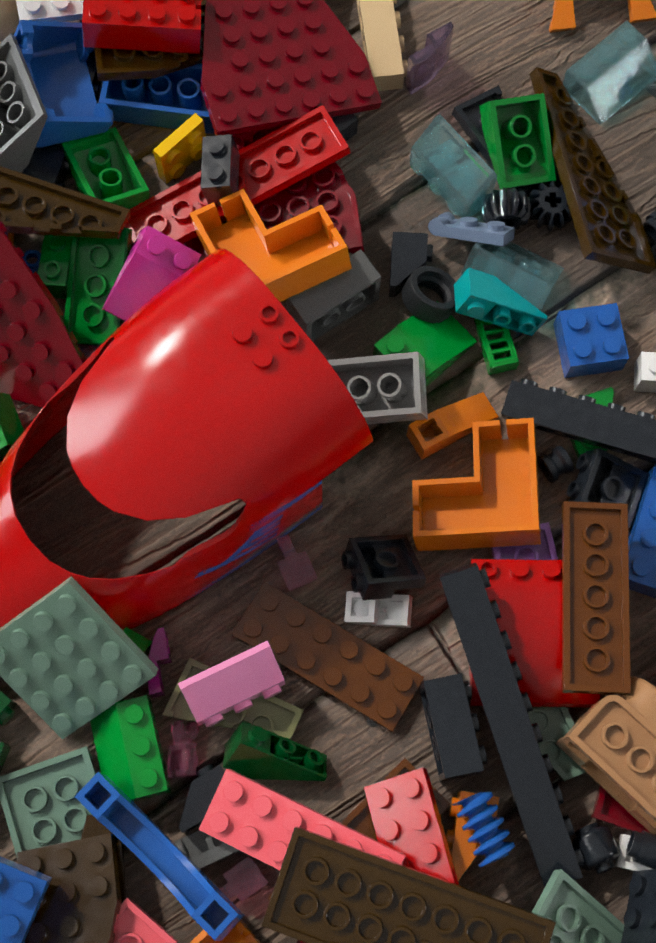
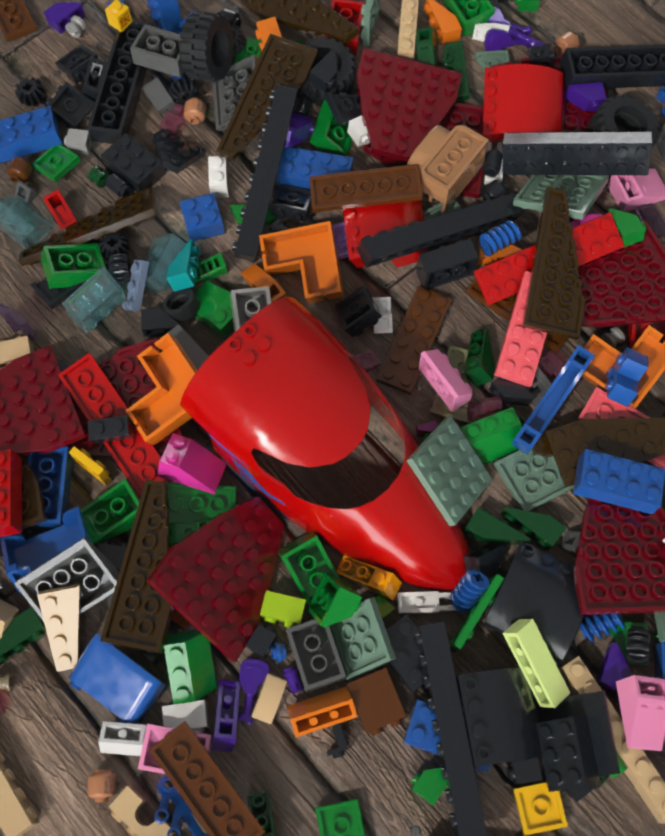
camera: 95 degrees left, 5 degrees down
(626, 126) = (59, 209): none -> red slope

